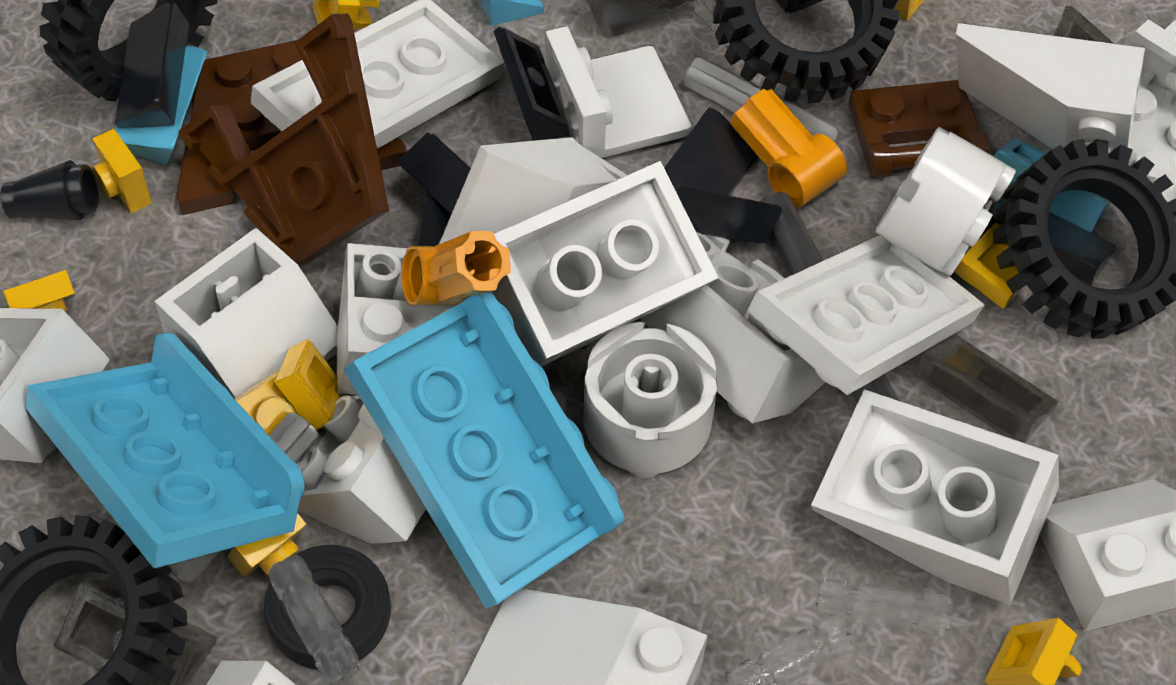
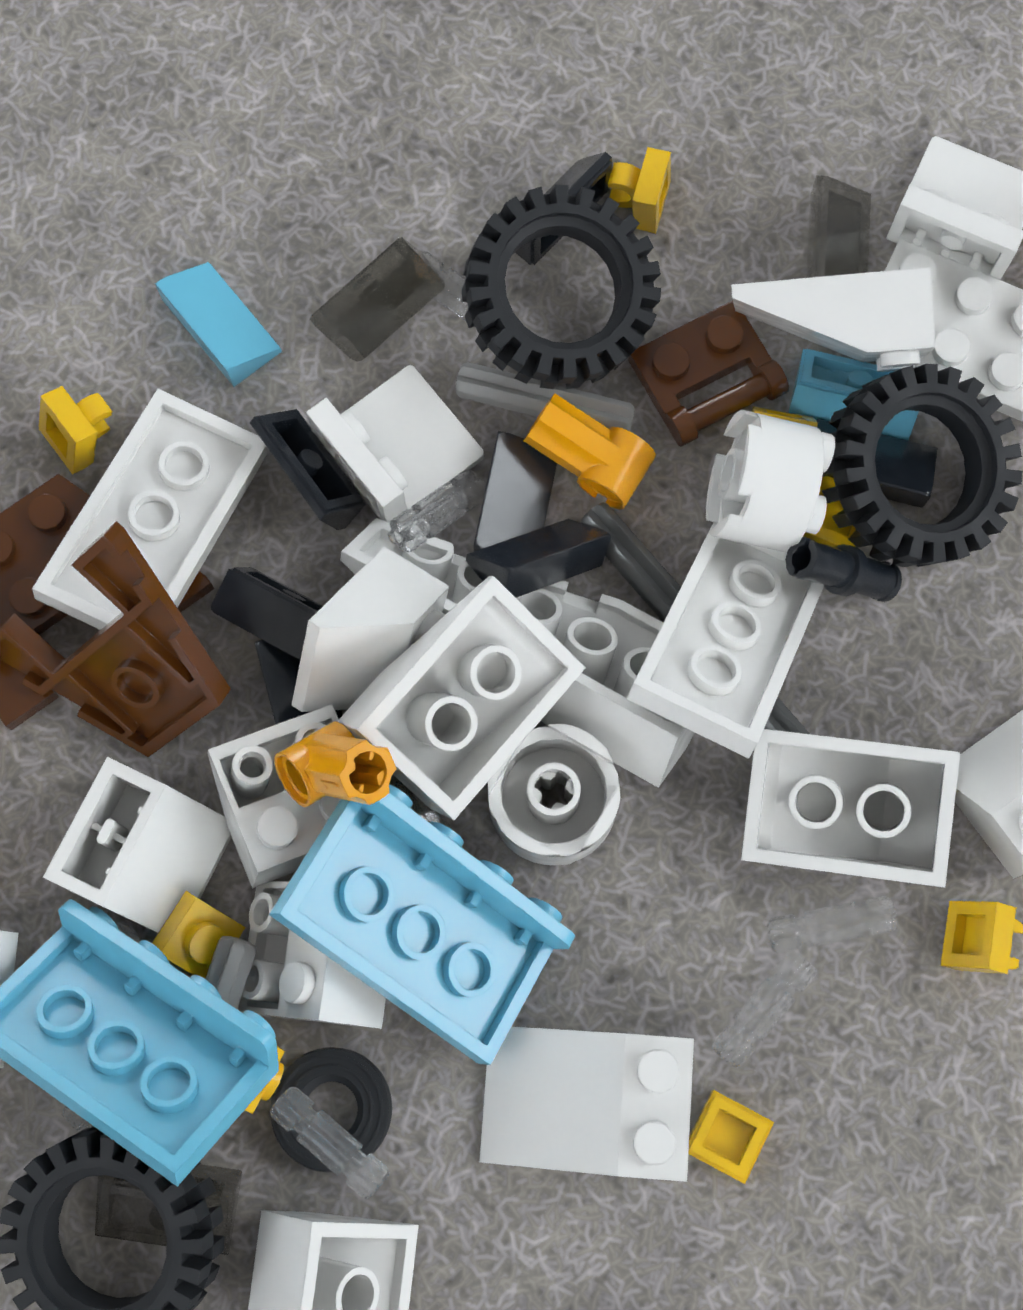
camera: 15 degrees left, 20 degrees up
(308, 383) = (223, 895): yellow tile -> none
(630, 149) = (437, 511): none -> clear axle
(985, 388) = (862, 655): clear smoke slope -> none
(993, 299) = (843, 570): none -> black pin

